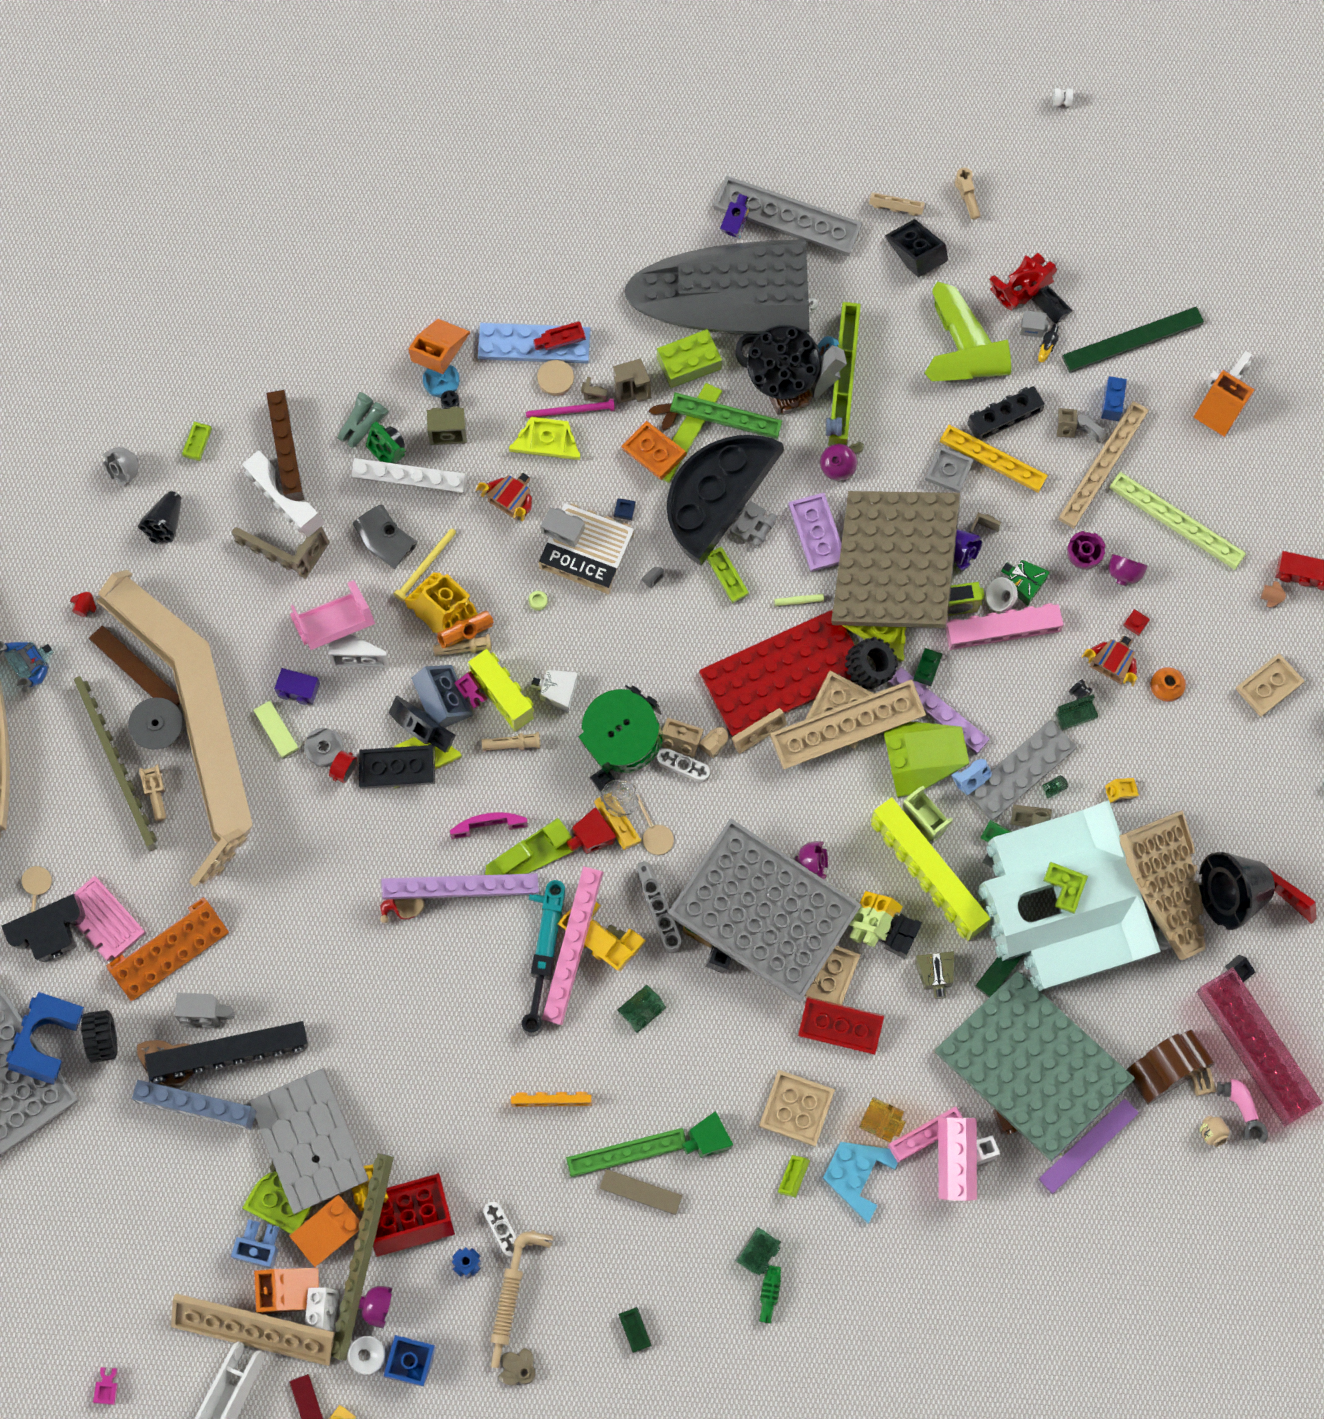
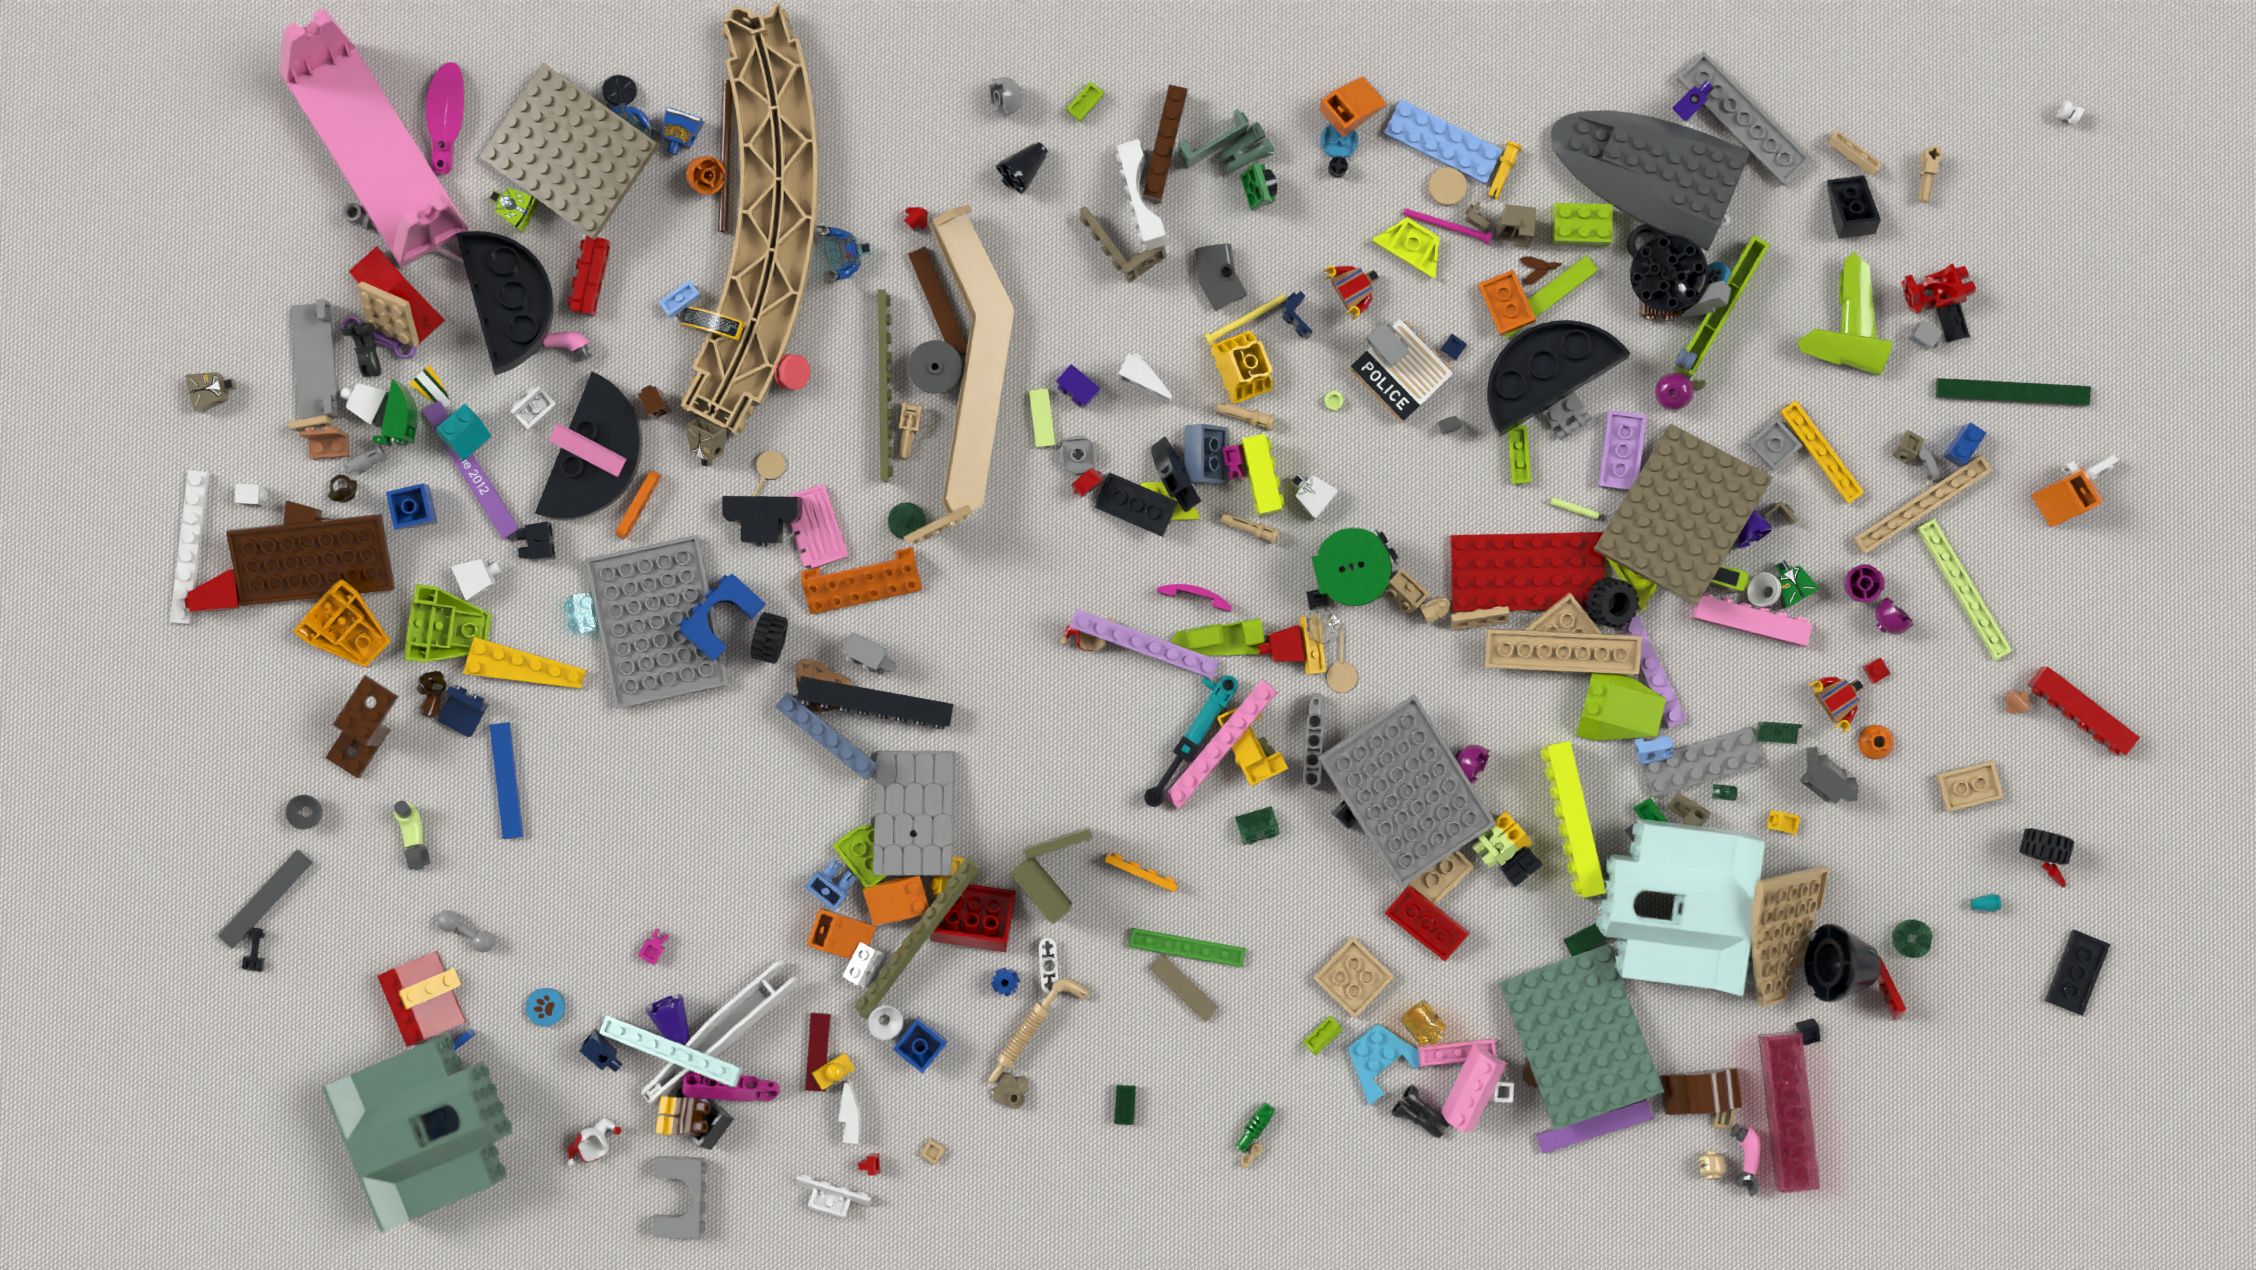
camera: 25 degrees right, 15 degrees up
(22, 786) = (792, 372): none -> coral head
(182, 872) = (906, 519): none -> clear green tile
(252, 1329) = (797, 956): tan plate -> none
(315, 445) = (1190, 158): none -> sand green panel
(333, 619) = (1136, 340): bright pink panel -> none
(376, 1305) = (912, 985): magenta cylinder -> none
(409, 475) = (1267, 227): white arch -> none
(446, 426) = (1323, 192): olive brick -> none
(454, 1148) = (1036, 880): none -> olive container
(456, 632) = (1254, 401): orange piece -> none
(466, 542) = (1290, 316): none -> dark blue bracket
(560, 336) = (1470, 149): red hinge -> none
(599, 334) = (1507, 161): none -> yellow pin
(668, 765) = (1390, 604): white beam -> none
(708, 1137) = (1263, 968): green torso -> none
(726, 415) = (1590, 297): bright green tile -> none
(758, 1252) = (1262, 1087): clear green bracket -> none
(777, 1328) = (1248, 1158): none -> tan piece
(925, 815) = (1593, 768): yellowish green piece -> none
(925, 1209) = (1425, 1114): none -> pearl dark grey piece
(927, 667) = (1662, 627): dark green plate -> none
(936, 972) = (1534, 913): olive torso -> none
(1028, 396) = (1825, 418): black brick -> none
(1048, 343) = (1932, 358): black piece -> none
(1071, 885) = (1692, 901): lime tile -> none
(1080, 690) = (1792, 713): black wheel -> none
(1140, 735) = (1828, 779): none -> dark grey slope
(1279, 846) = (1901, 935): none -> clear green plate

